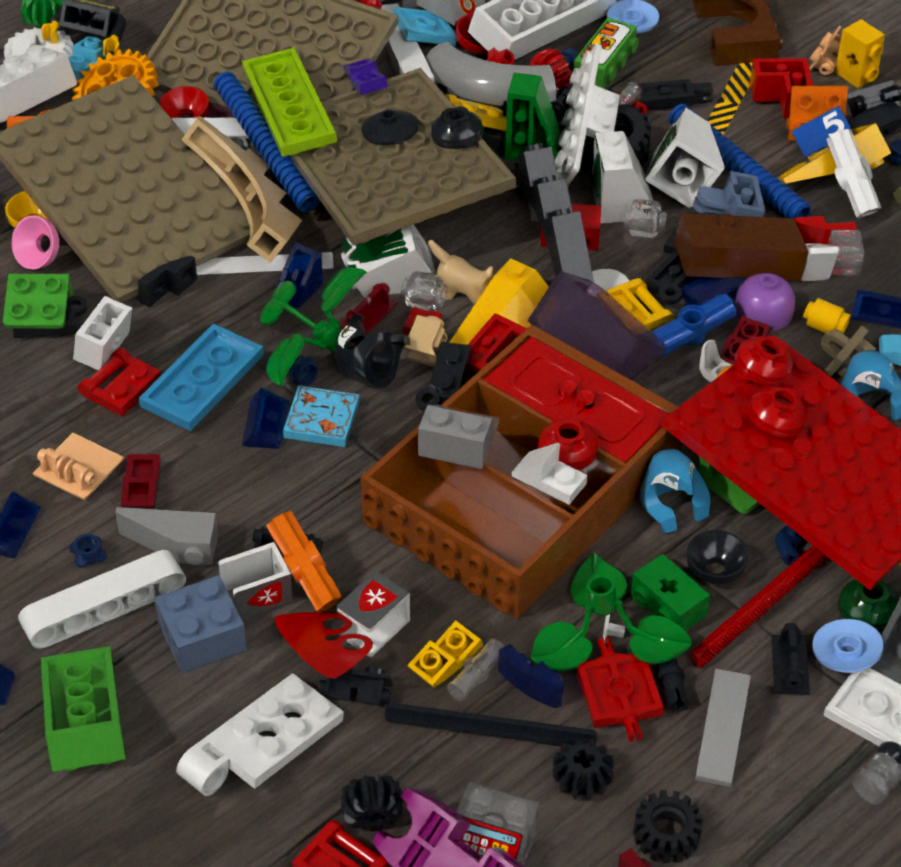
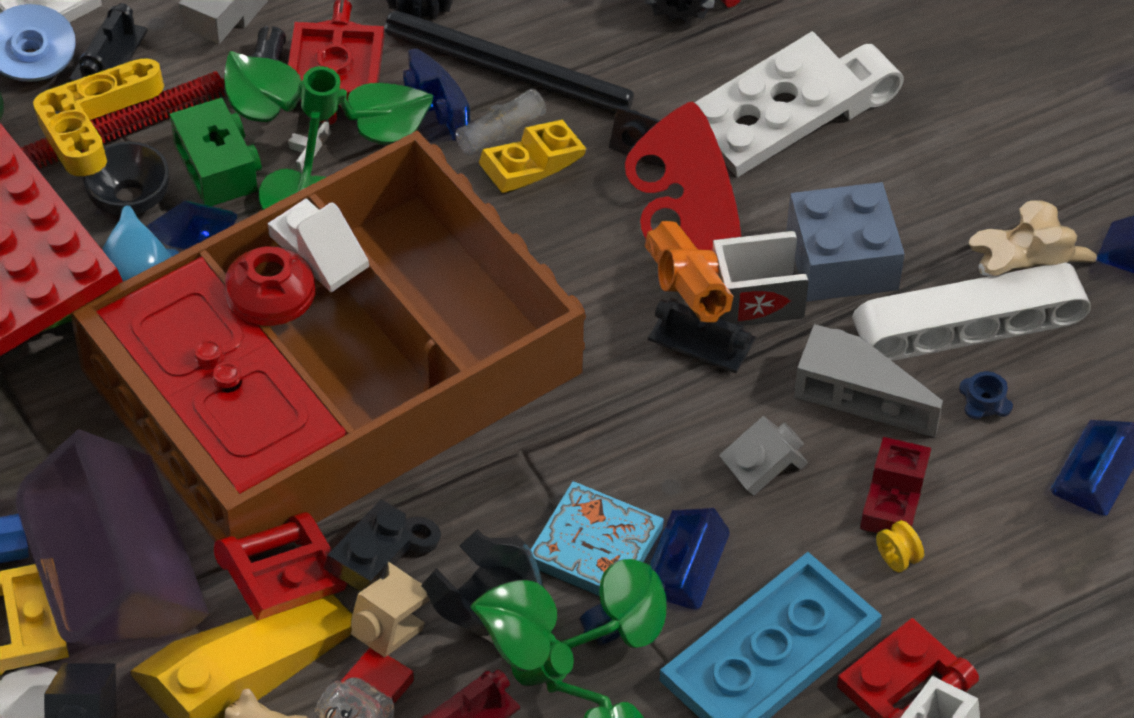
camera: 165 degrees left, 5 degrees up
(57, 639) = (1033, 243): none -> tan animal
(77, 465) = (988, 536): light nougat hinge -> none
(81, 709) = (1010, 157): bright green slope -> none
(133, 441) = (900, 546): none -> yellow bush
(224, 478) = (763, 454): none -> light grey bracket
(376, 610) = (607, 201): piece -> none
(456, 435) = (422, 320): light grey slope -> none
(651, 517) = (191, 224): none -> clear blue slope
(778, 598) = (80, 103): none -> yellow beam

